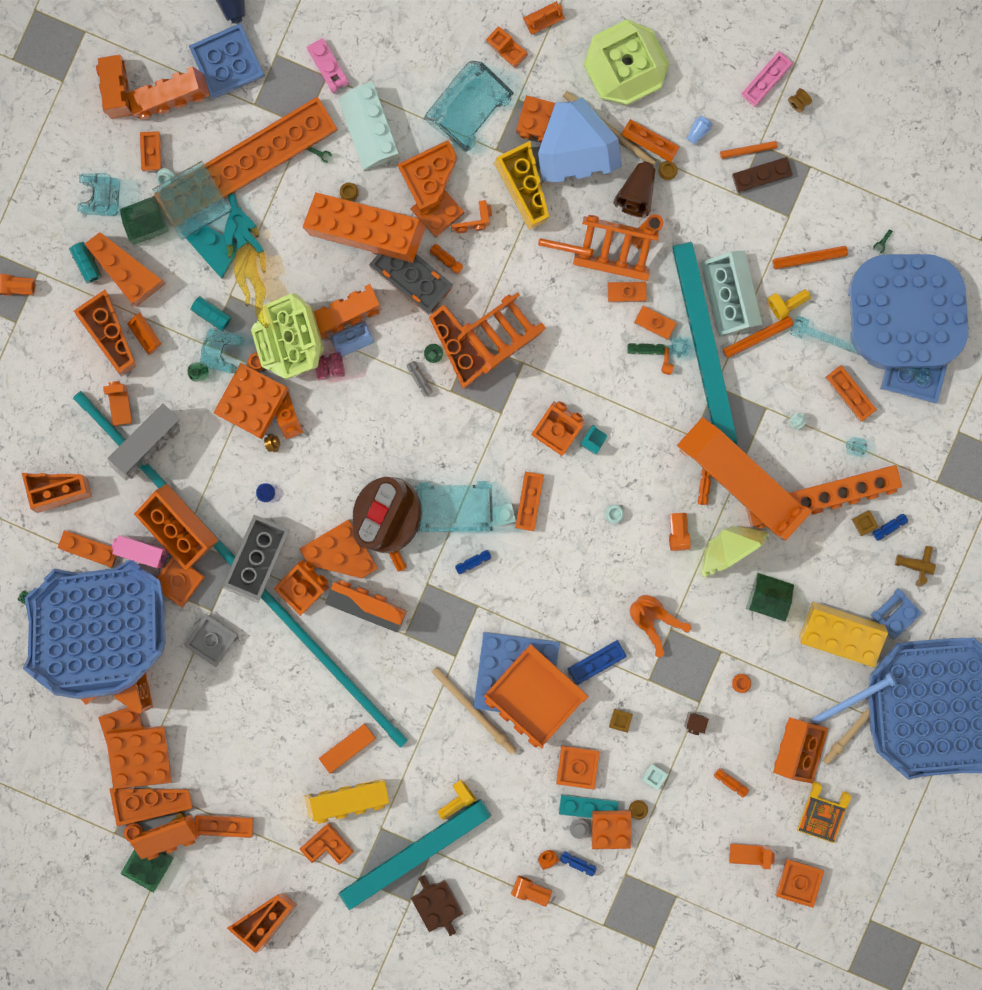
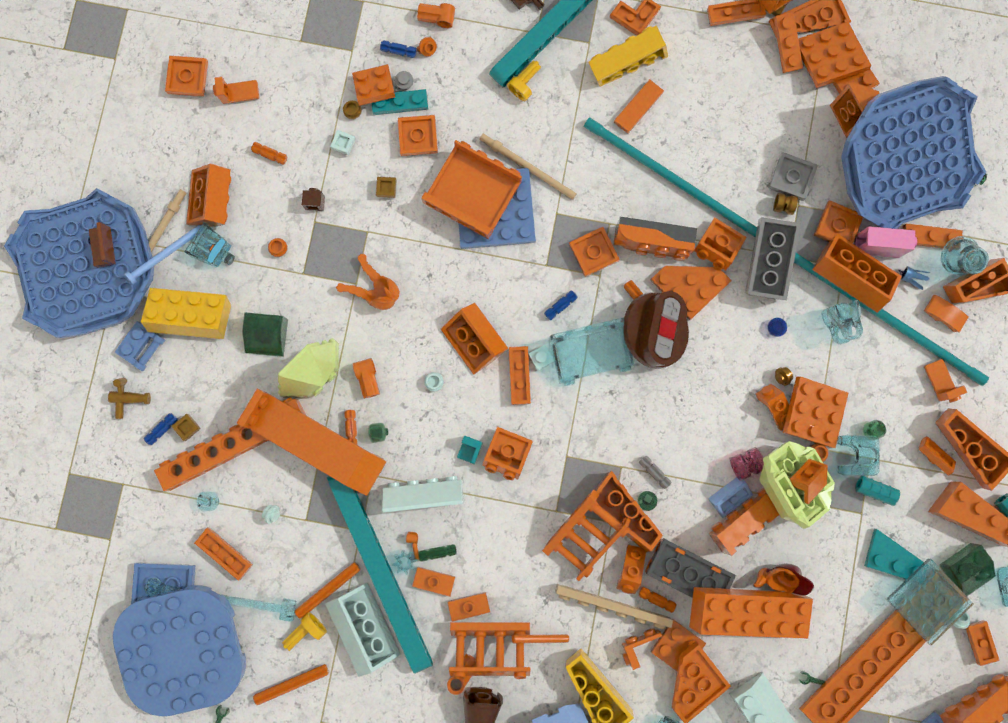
camera: 170 degrees right, 5 degrees down
(66, 520) = (964, 256): none -> clear light blue piece
(96, 469) = (947, 313): none -> orange slope
(121, 514) = (910, 273): none -> flat silver piece
(144, 442) = (912, 346): light grey brick -> none
(180, 779) = (788, 42): none -> orange plate
(201, 486) = (842, 318): none -> clear light blue piece
(226, 613) = (785, 204): none -> pearl gold wheel
(248, 249) = (859, 557): clear yellow piece -> none
(277, 337) = (810, 479): none -> orange panel
(322, 252) = (785, 578): none -> orange hair
(349, 191) = (771, 646): pearl gold plate -> none
(428, 608) = (594, 251): none -> orange plate
(464, 291) = (632, 570): none -> orange bracket
(497, 265) = (621, 609): none -> tan plate
(565, 547) = (474, 338): none -> orange slope
(597, 662) = (420, 237): blue tile -> none
(648, 405) = (422, 495): none -> light aqua slope
(679, 476) = (377, 432): none -> clear green piece
(808, 697) = (210, 247): none -> clear light blue torso
(821, 816) = (177, 141): flag -> none
(913, 719) = (102, 245): none -> dark orange panel

